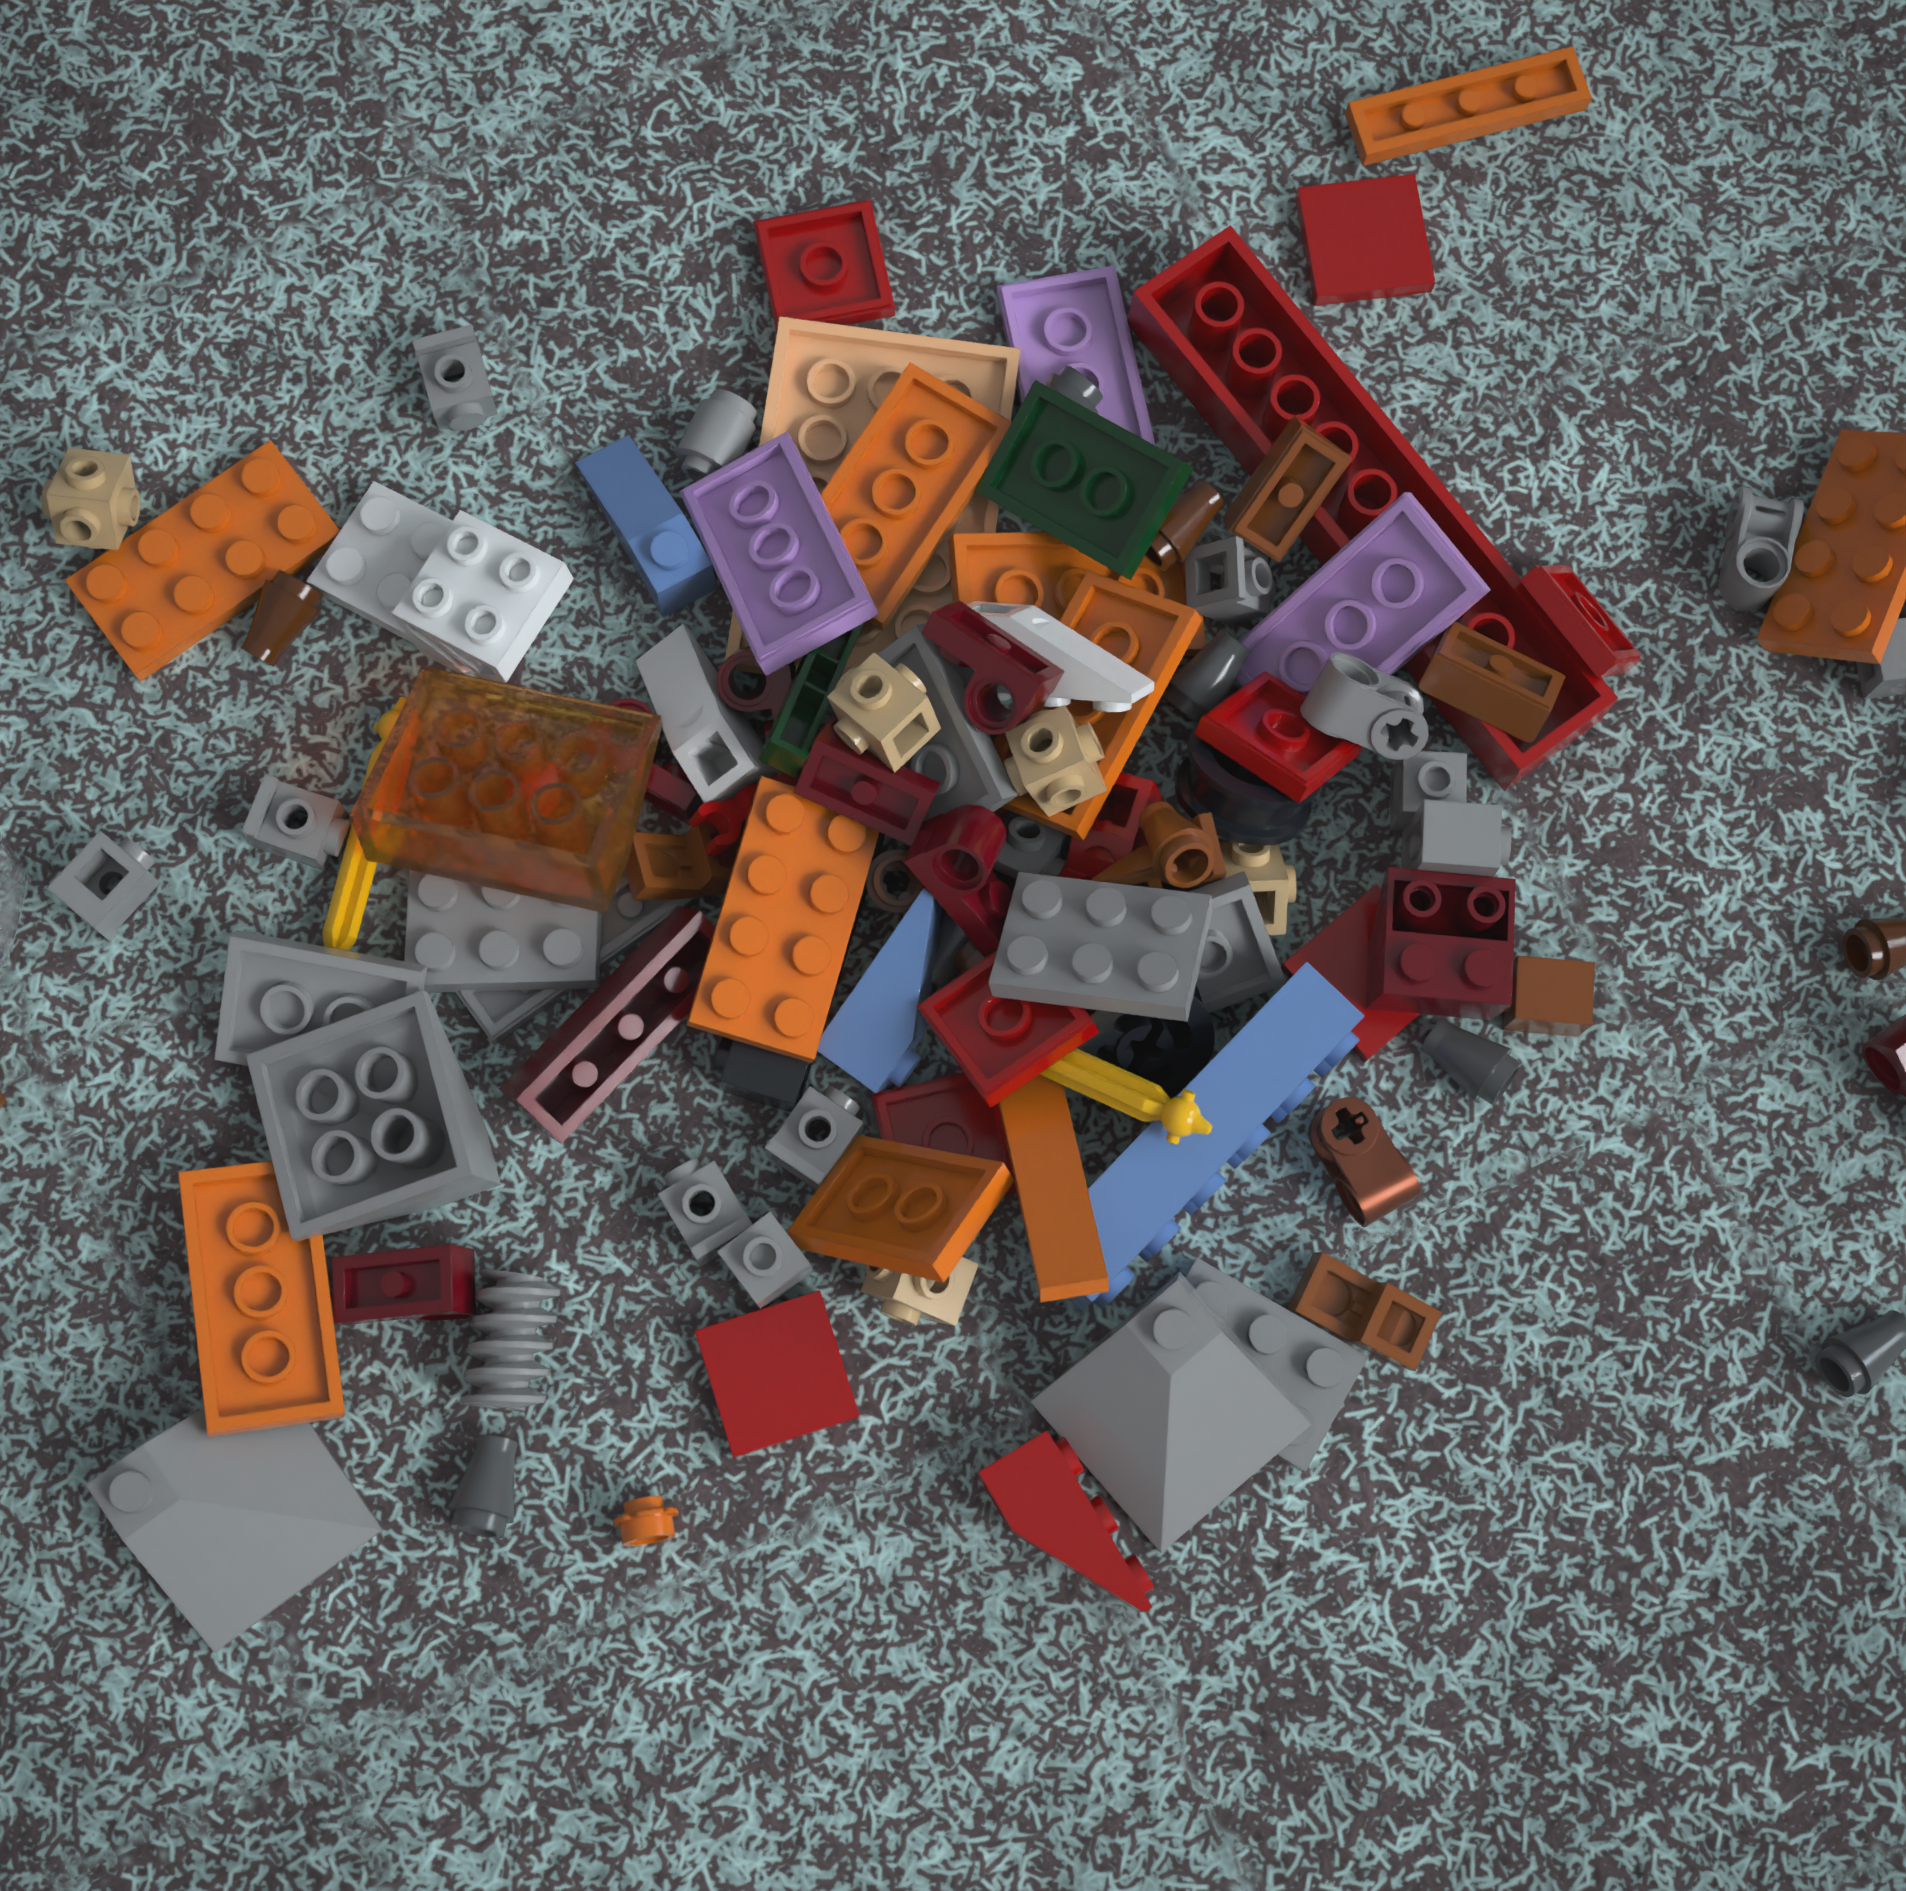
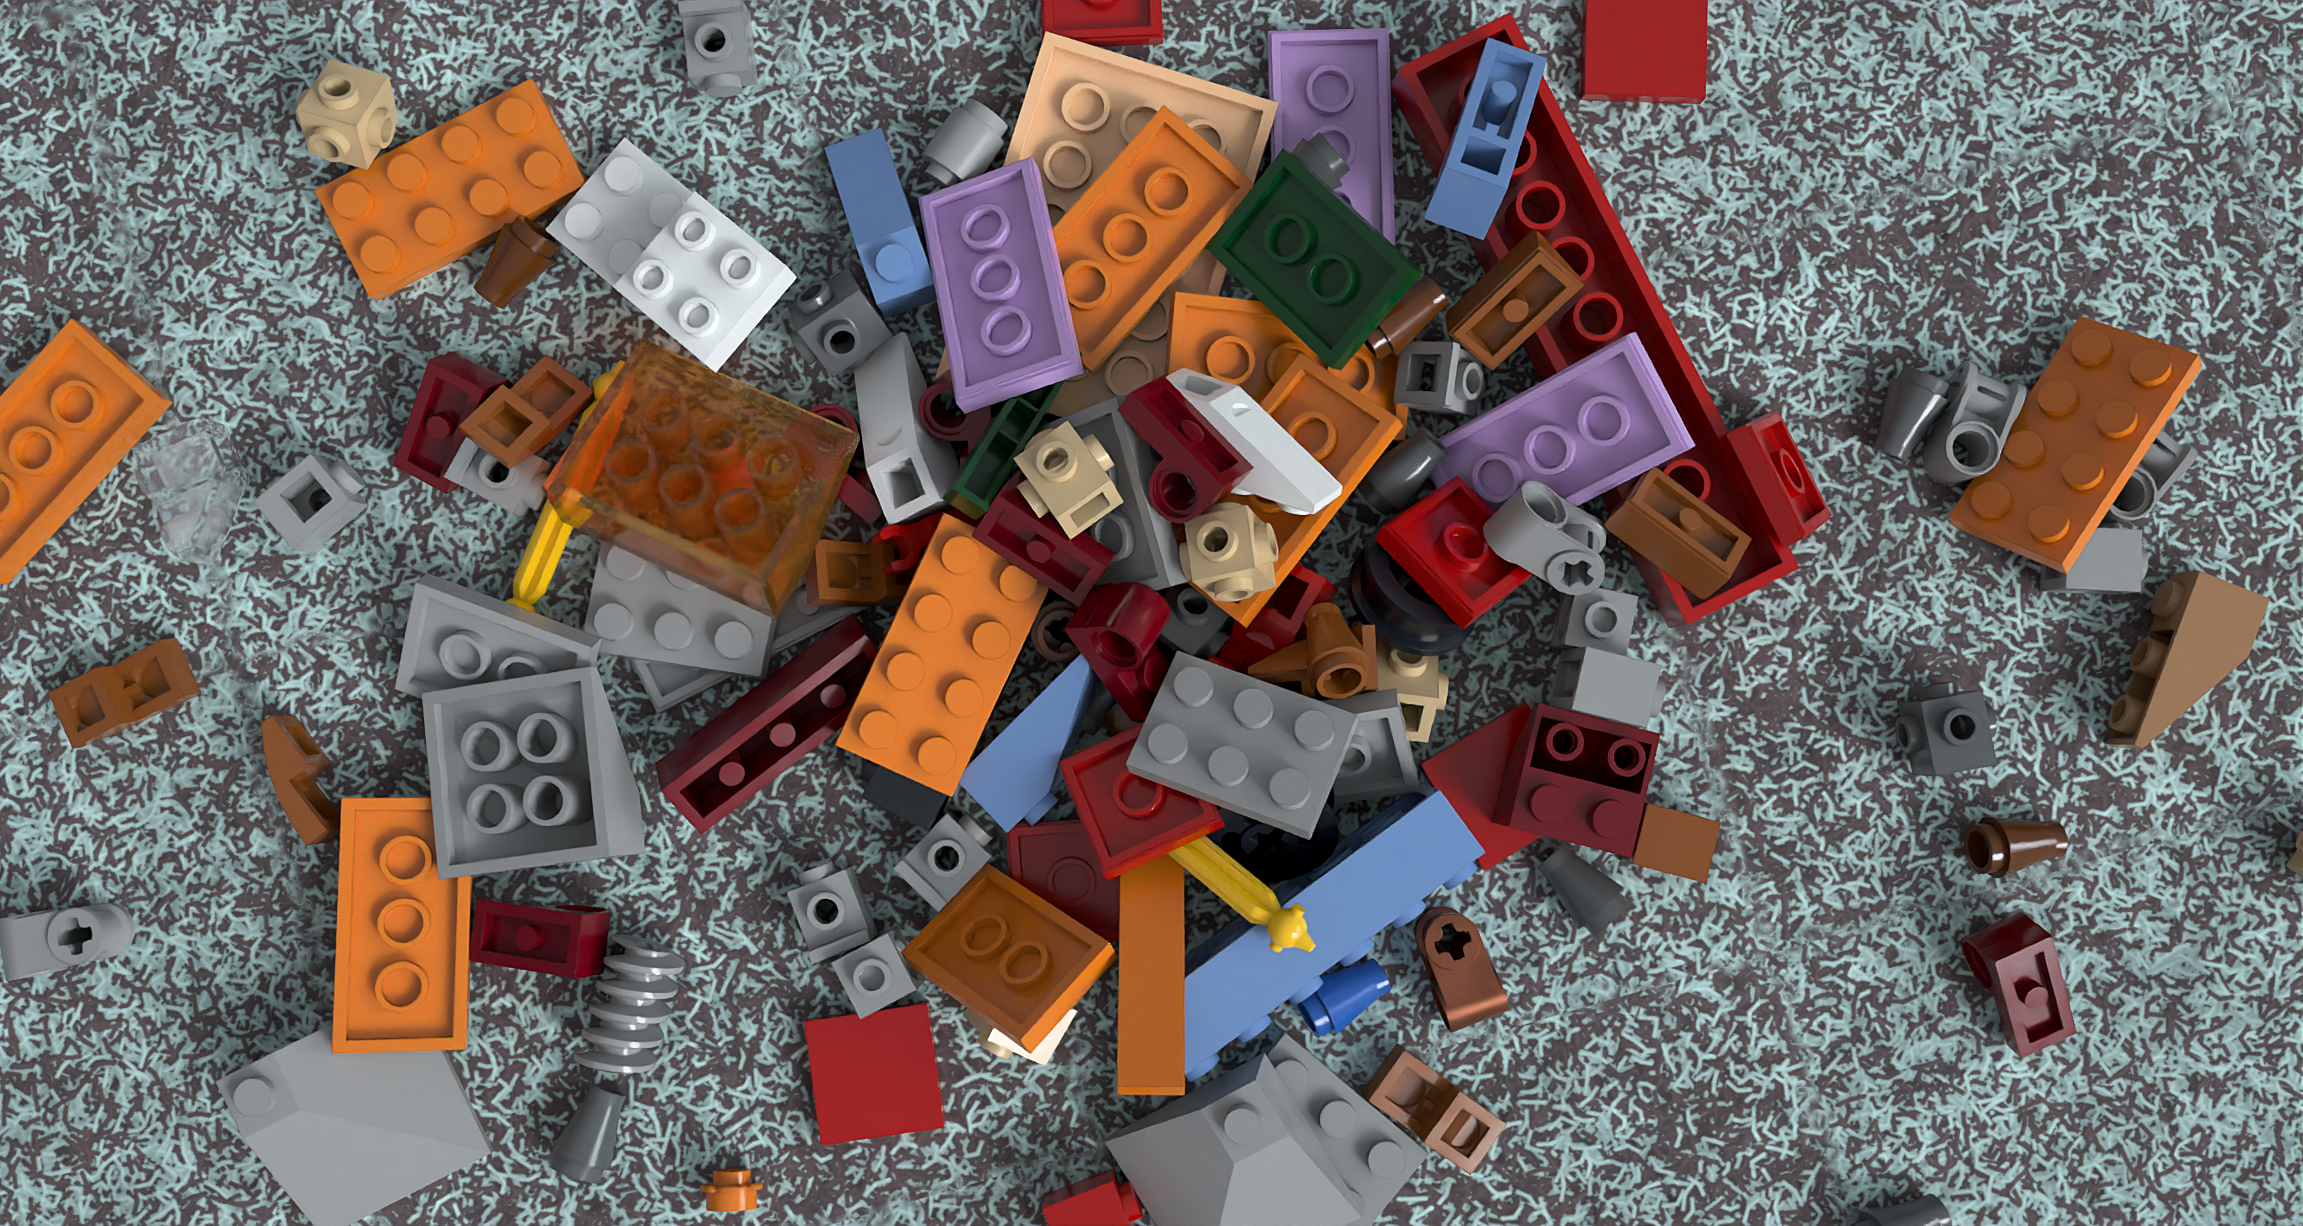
camera: 15 degrees right, 10 degrees up
(122, 1156) = (292, 763): none -> dark orange slope
(229, 777) = (446, 398): none -> dark red plate
(319, 758) = (530, 414): none -> dark orange slope
(619, 622) = (837, 323): none -> dark grey brick
(1230, 342) = (1486, 139): none -> medium blue slope
(1243, 1212) = (1343, 997): none -> blue cone
(1695, 543) = (1909, 411): none -> dark grey cone
(1799, 839) = (1946, 730): none -> dark grey brick

